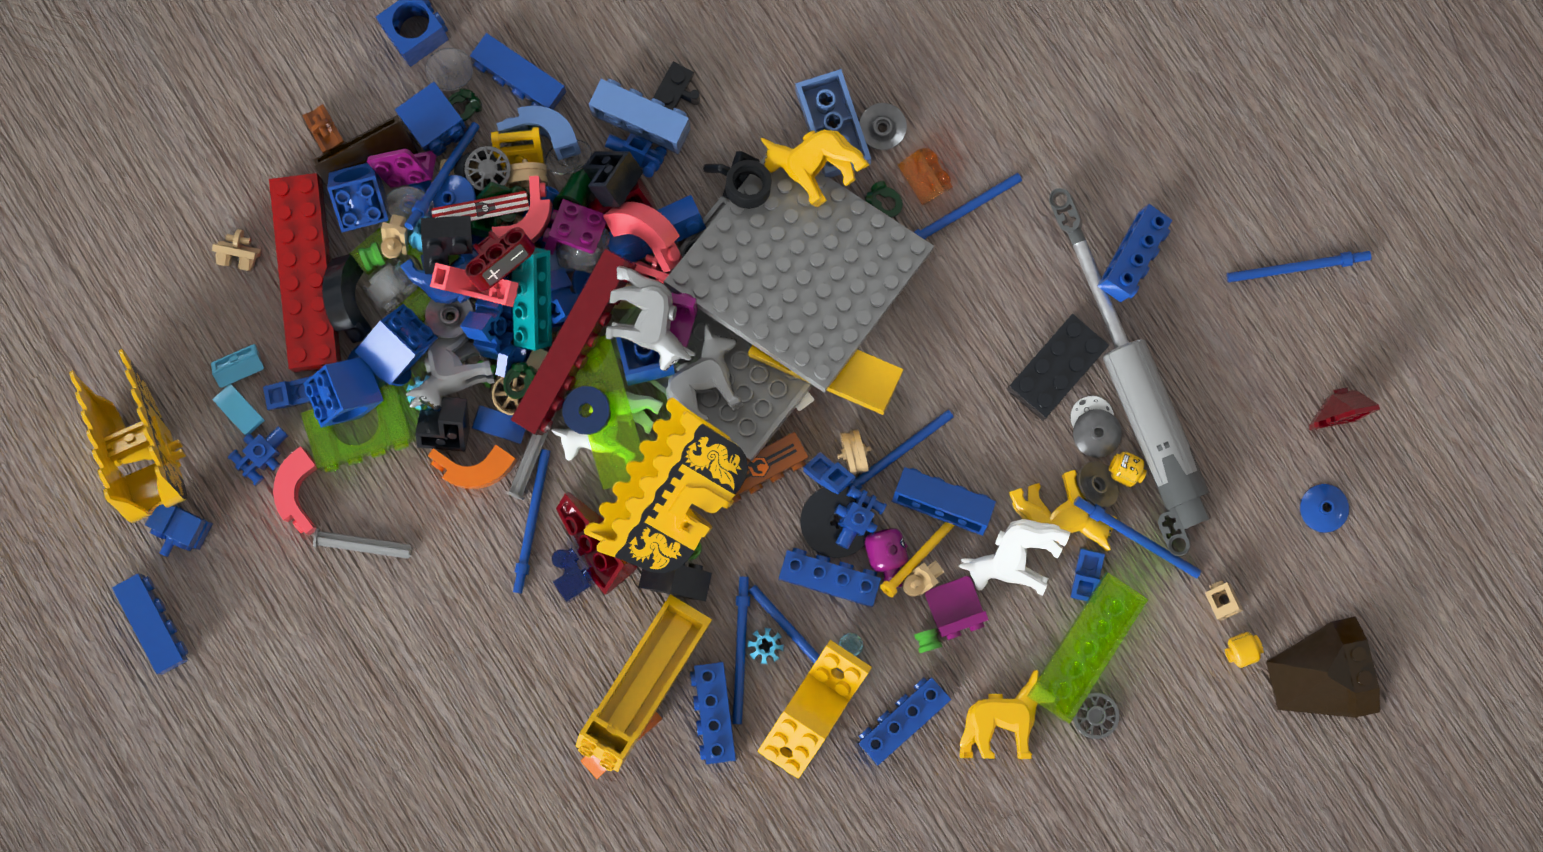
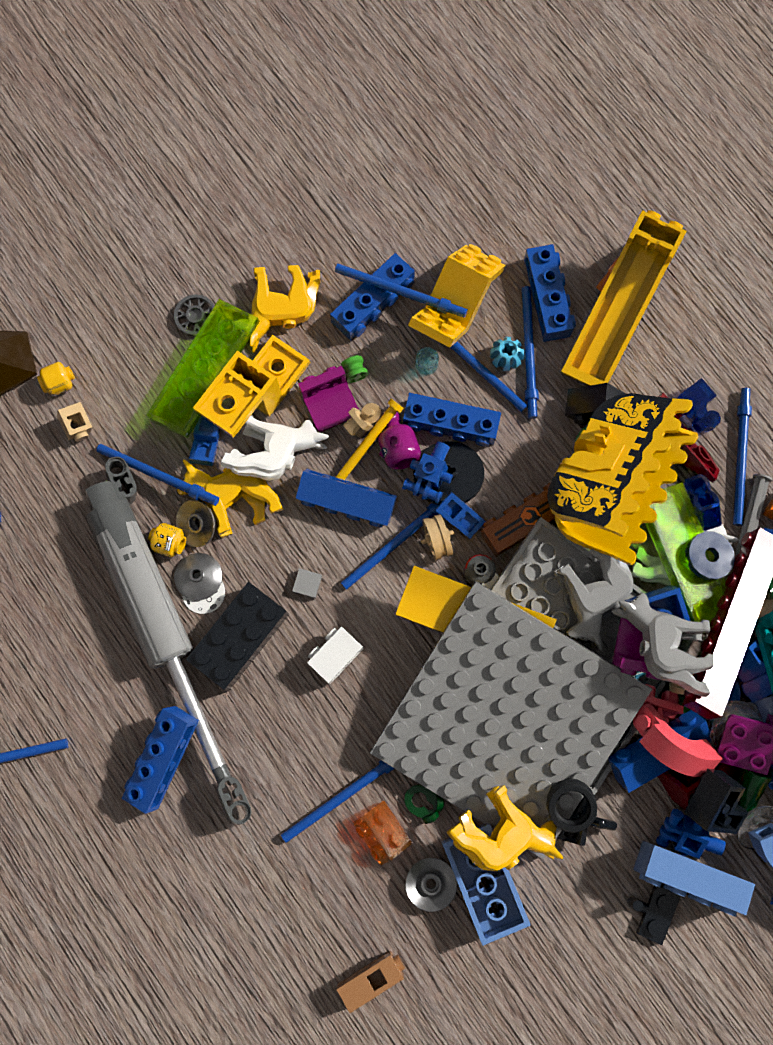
camera: 175 degrees right, 5 degrees down
(583, 468) = (704, 501): none -> clear blue brick
(807, 423) = (478, 563): none -> dark grey head
(831, 694) = (443, 305): none -> blue bar
(943, 47) = (371, 981): none -> medium nougat brick
(962, 342) = (334, 654): none -> white brick
(987, 418) = (307, 583): none -> light grey tile
(1035, 619) = (251, 385): none -> yellow bracket

